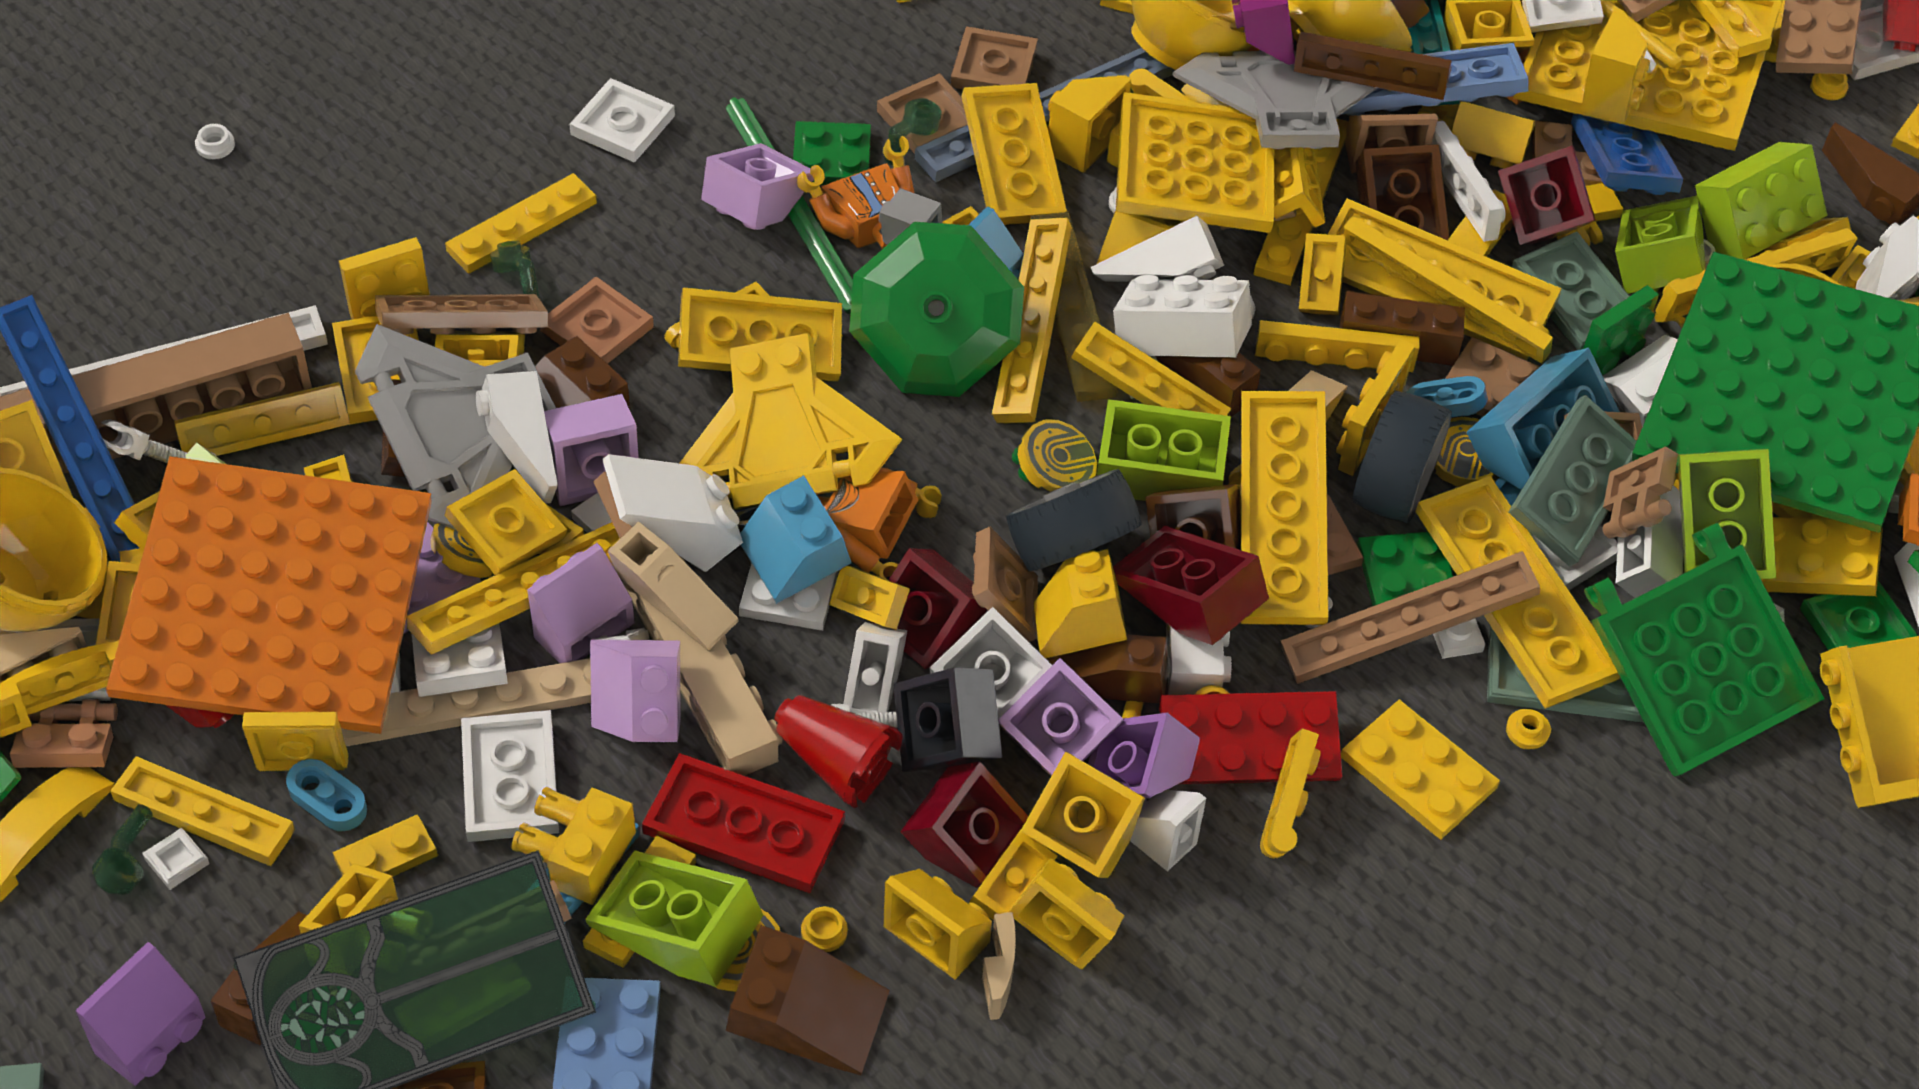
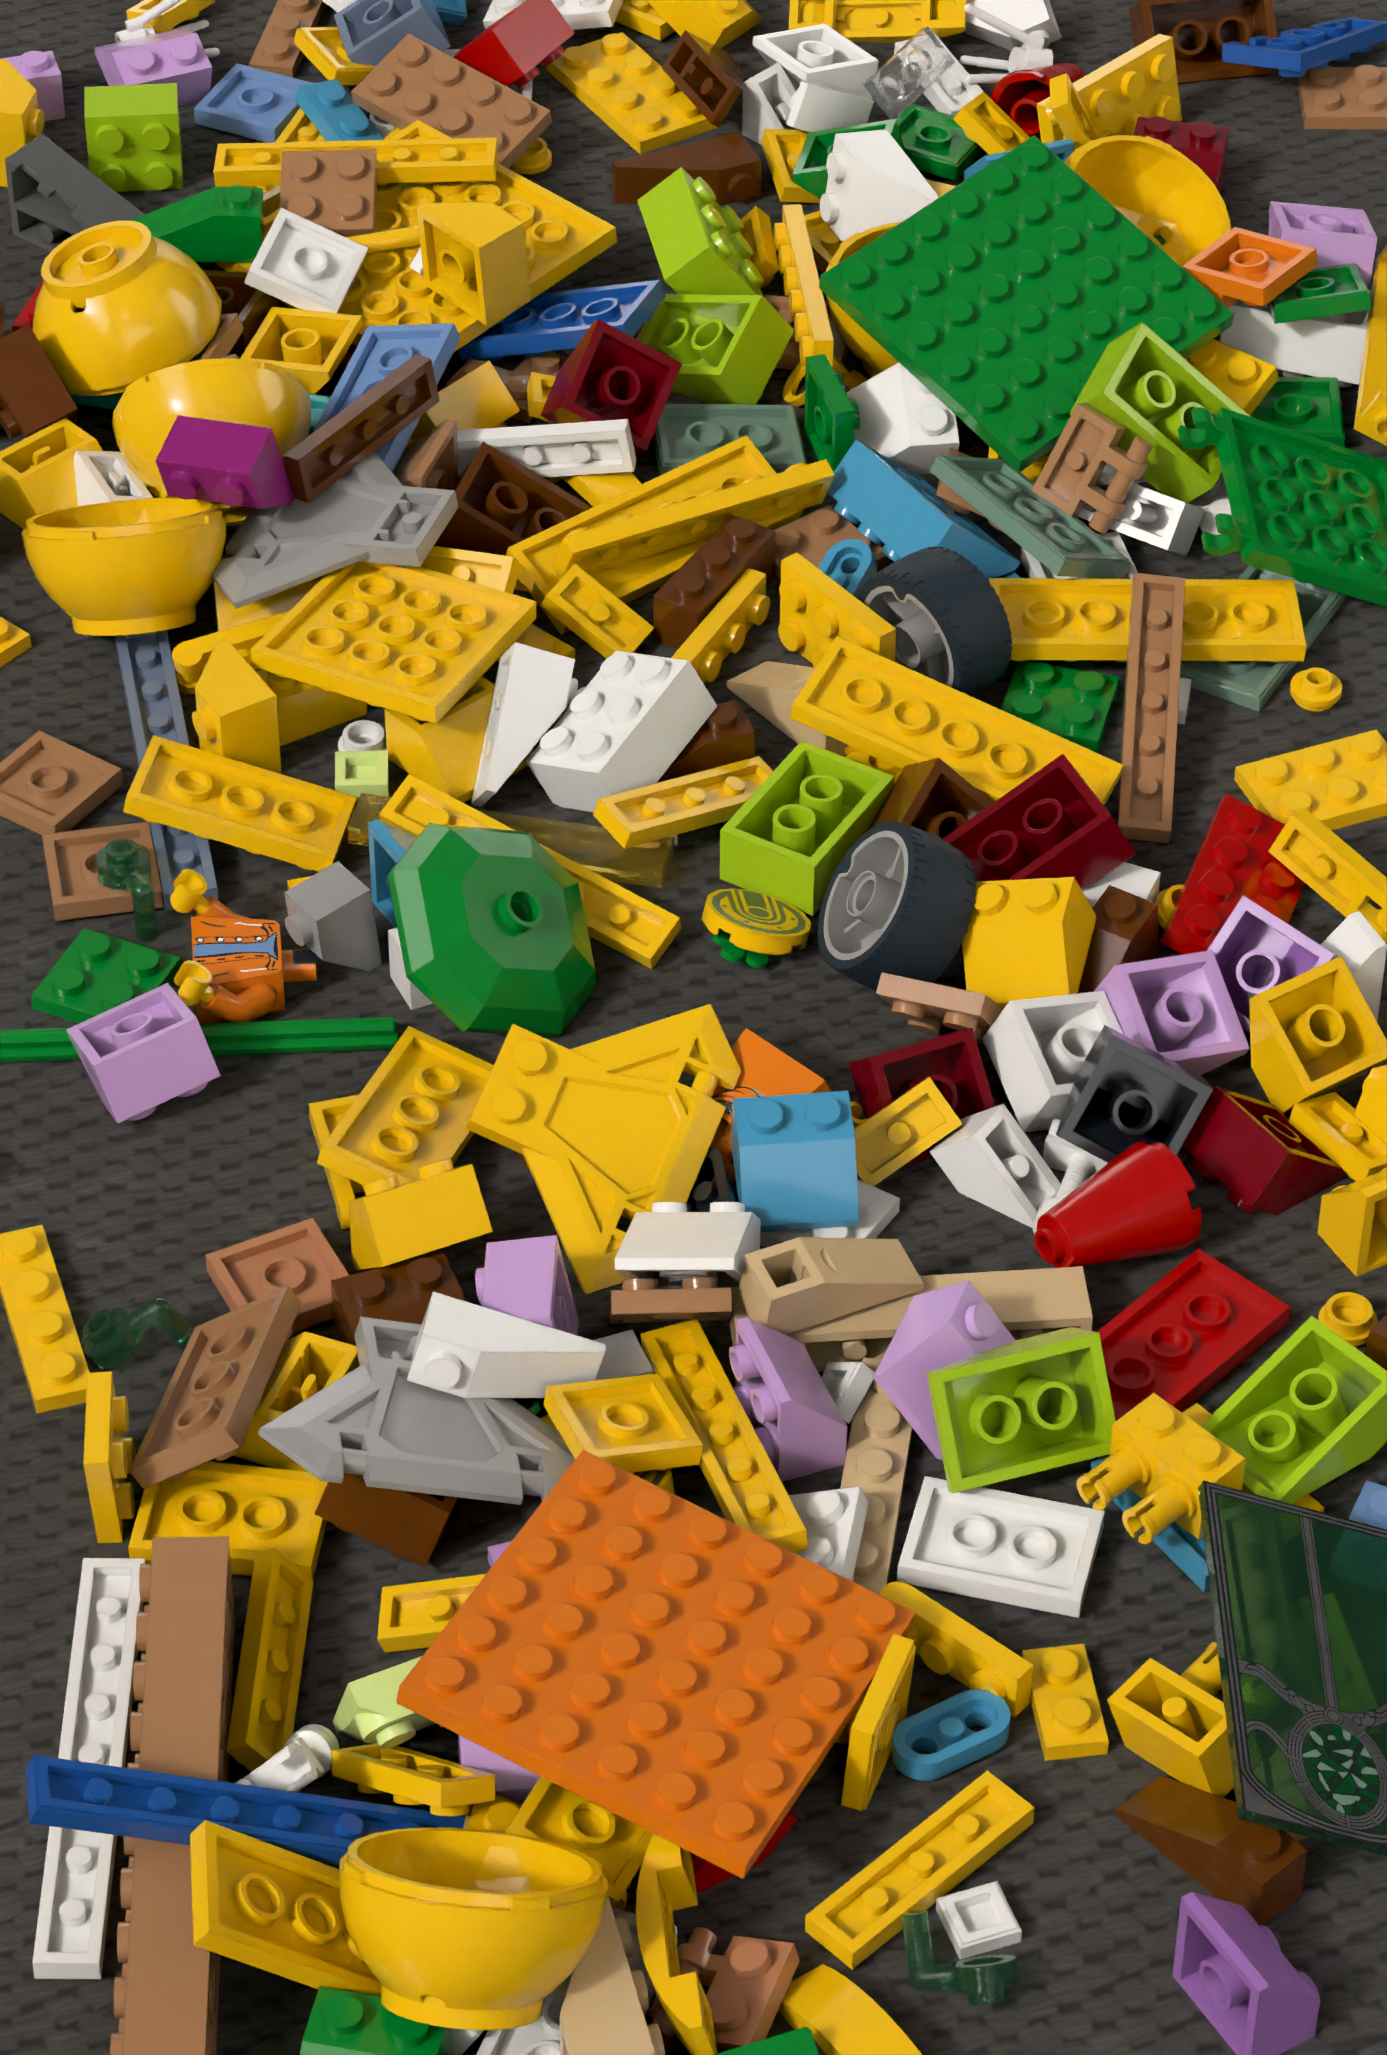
camera: 65 degrees left, 10 degrees down
(399, 772) = (962, 1650): none -> yellow plate
(607, 735) = (1022, 1408): none -> lime slope
(648, 359) = (416, 1216): none -> yellow slope
(1092, 208) = (362, 772): none -> yellowish green plate

